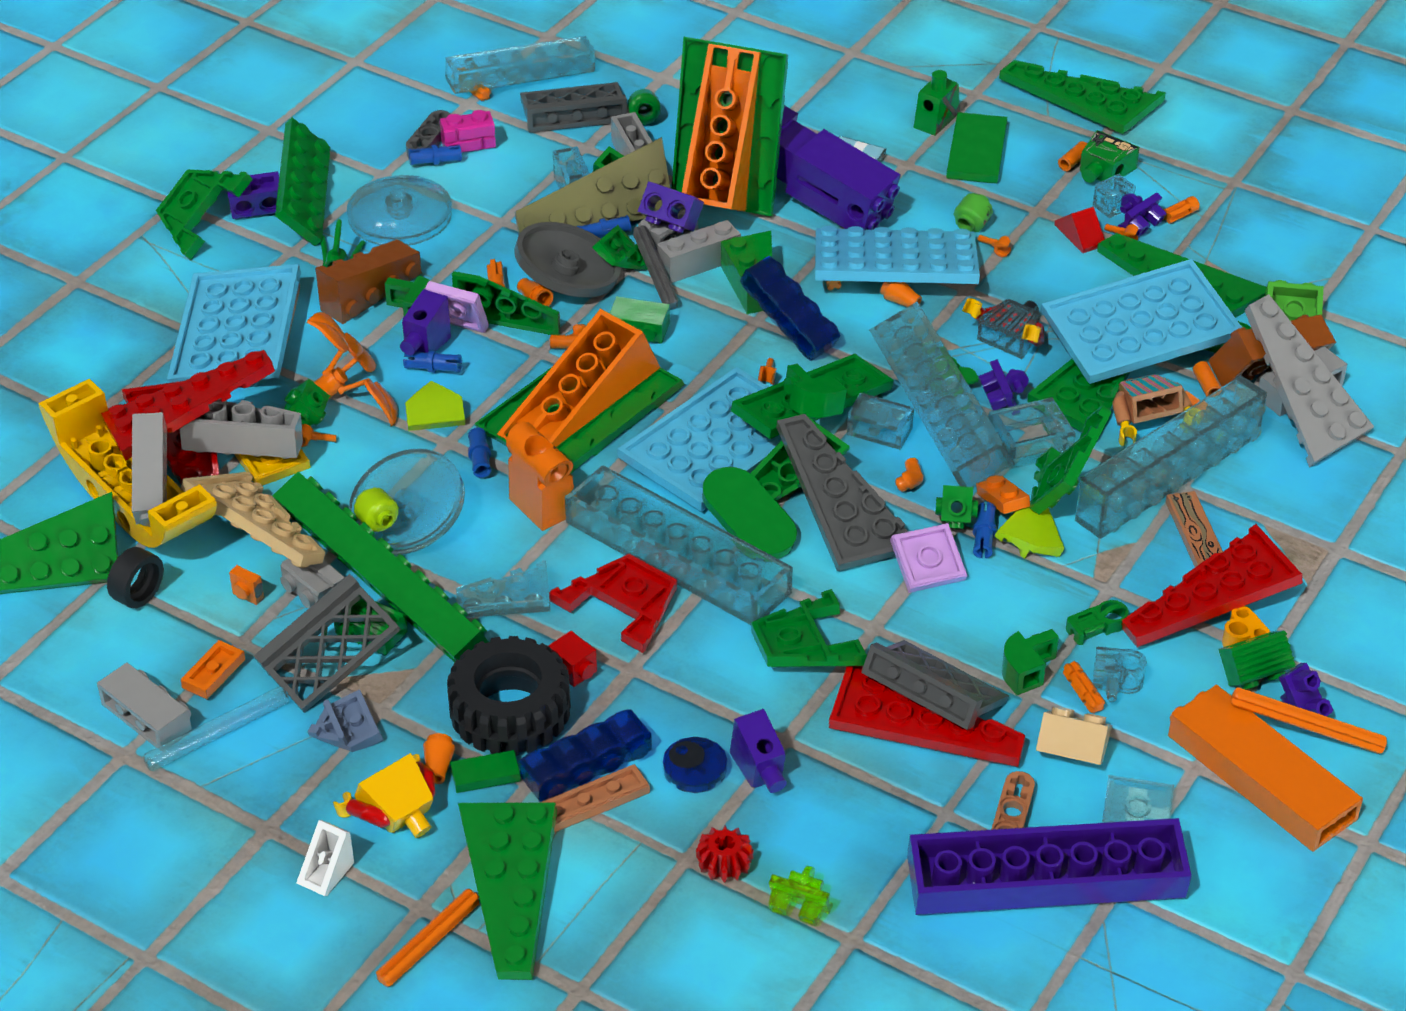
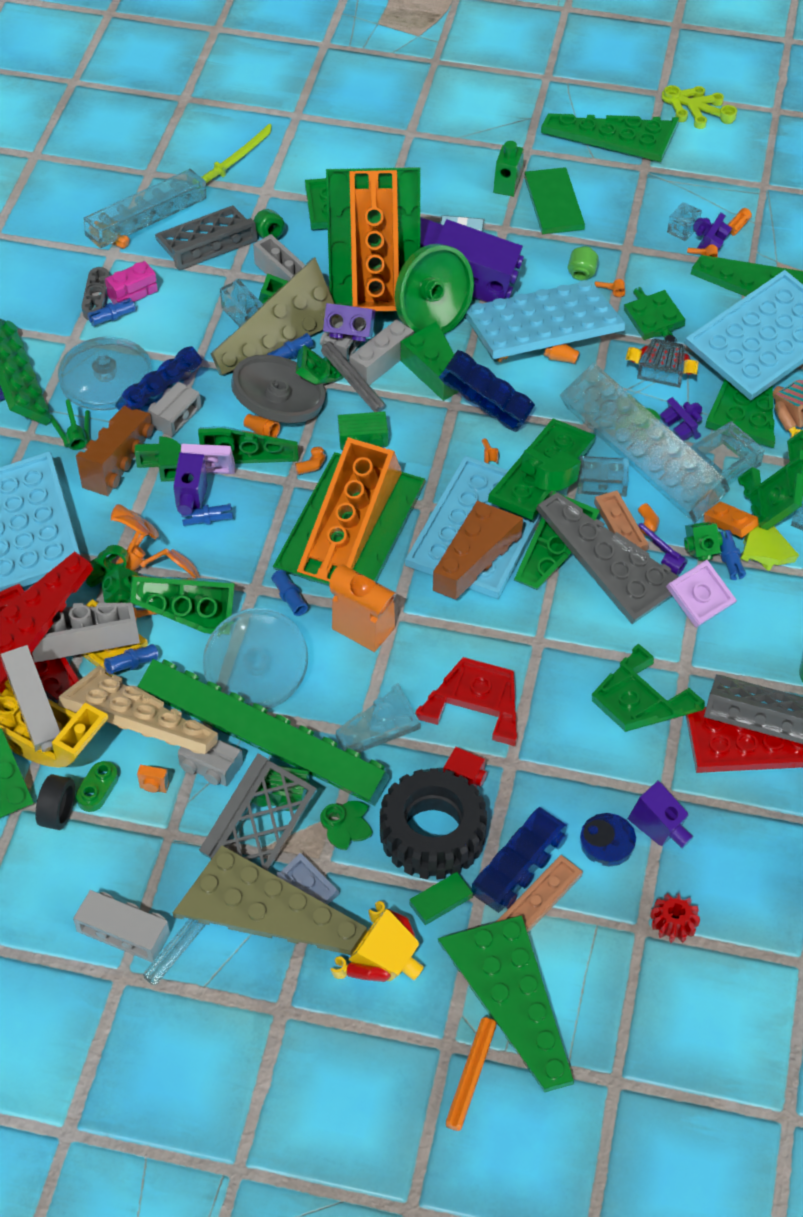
camera: 20 degrees left, 10 degrees up
(189, 580) = (98, 784): none -> green plate
(213, 669) = (163, 870): orange plate -> none
(279, 471) = (130, 659): none -> blue pin
(293, 721) = (259, 903): none -> olive wing
(296, 376) = (102, 564): none -> green piece
(327, 858) = (353, 1028): white slope -> none
(357, 426) = (190, 601): none -> green wedge
(376, 509) = (236, 676): lime head -> none
(422, 676) = (349, 823): none -> green plate
(434, 408) = (231, 558): lime slope -> none
(438, 754) = (396, 895): orange cone -> none
(450, 226) = (157, 381): none -> clear blue brick
(451, 254) = (174, 408): none -> light grey brick
(495, 272) = (219, 415): orange piece -> none
(623, 45) = (220, 168): none -> lime sword
(679, 544) = (501, 638): clear light blue brick -> none
(692, 450) = (476, 545): none -> dark orange wedge
(748, 511) = (541, 591): green tile -> none
(779, 192) = (434, 287): none -> green dish
(801, 889) = (739, 939): clear neon green hips -> none
(876, 466) = (619, 518): none -> nougat plate
(912, 517) = (672, 558): none -> dark purple plant
(1029, 279) = (654, 314): none -> green plate
(1072, 157) = (634, 191): orange axle -> none
(1081, 229) = (672, 257): red slope -> none
(1107, 157) = (663, 188): green torso -> none
(1173, 71) = (675, 96): none -> lime plant

